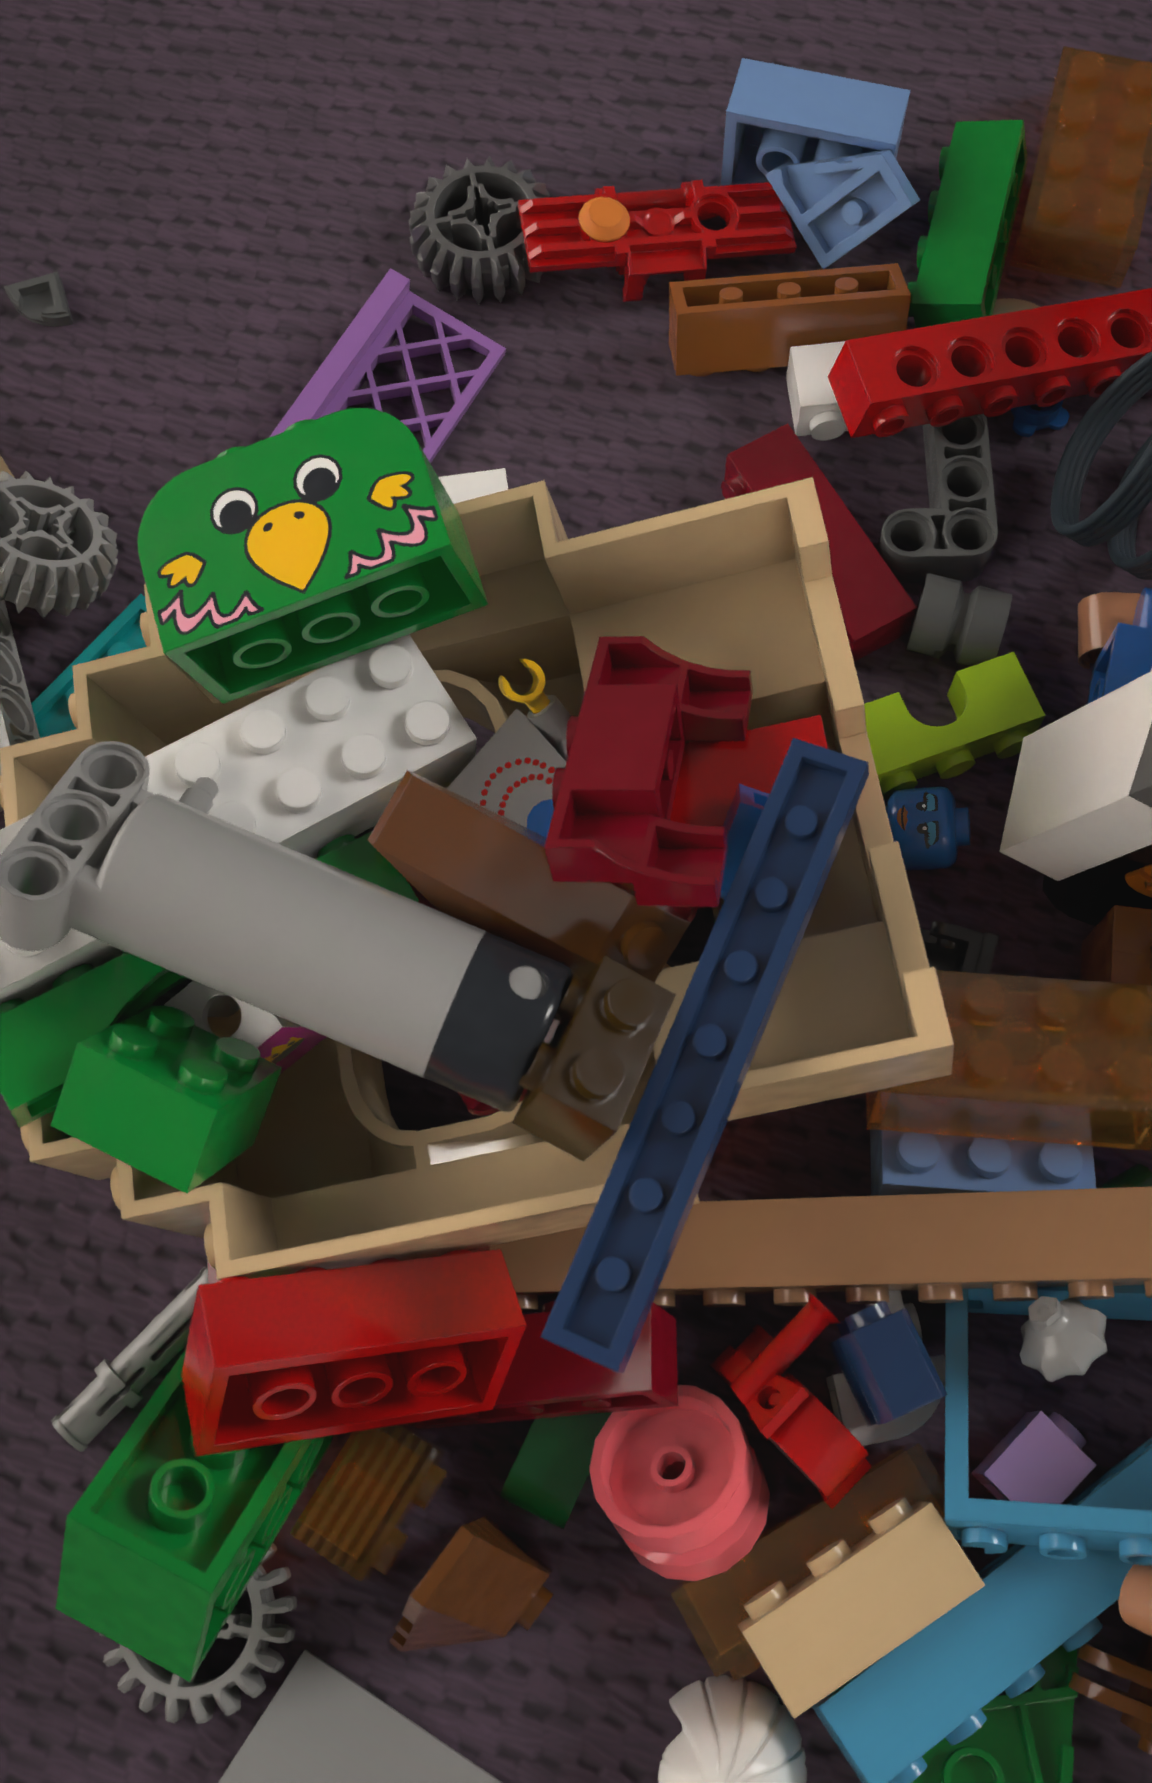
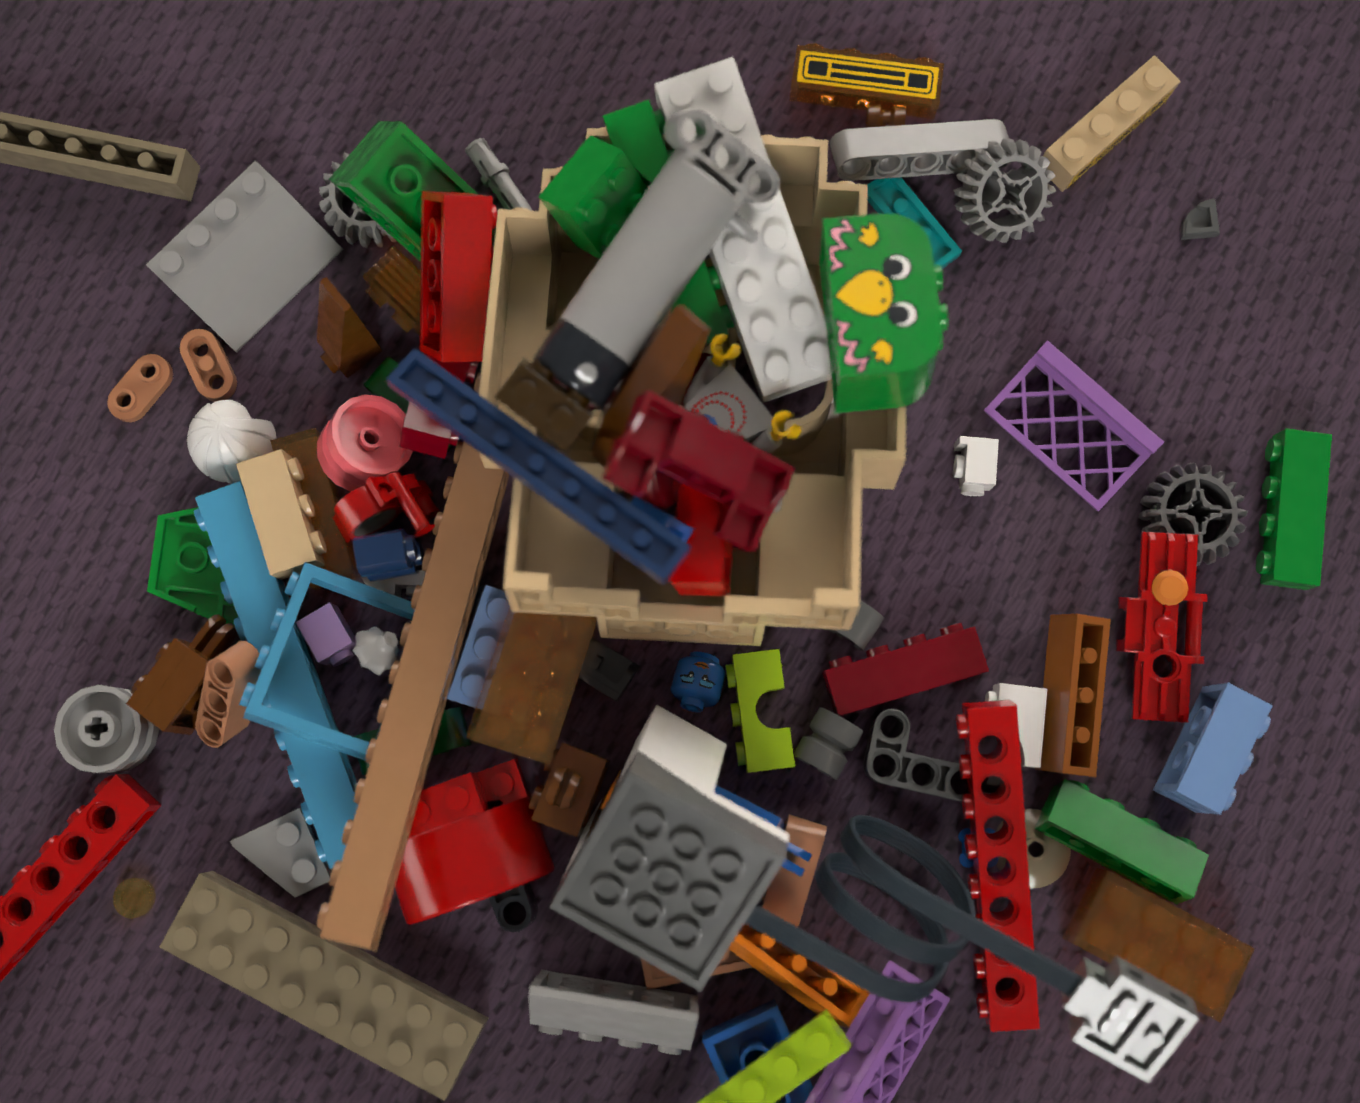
camera: 100 degrees right, 10 degrees up
(446, 113) = (1295, 509): none -> green brick
(842, 199) = (1156, 754): medium blue wing -> none

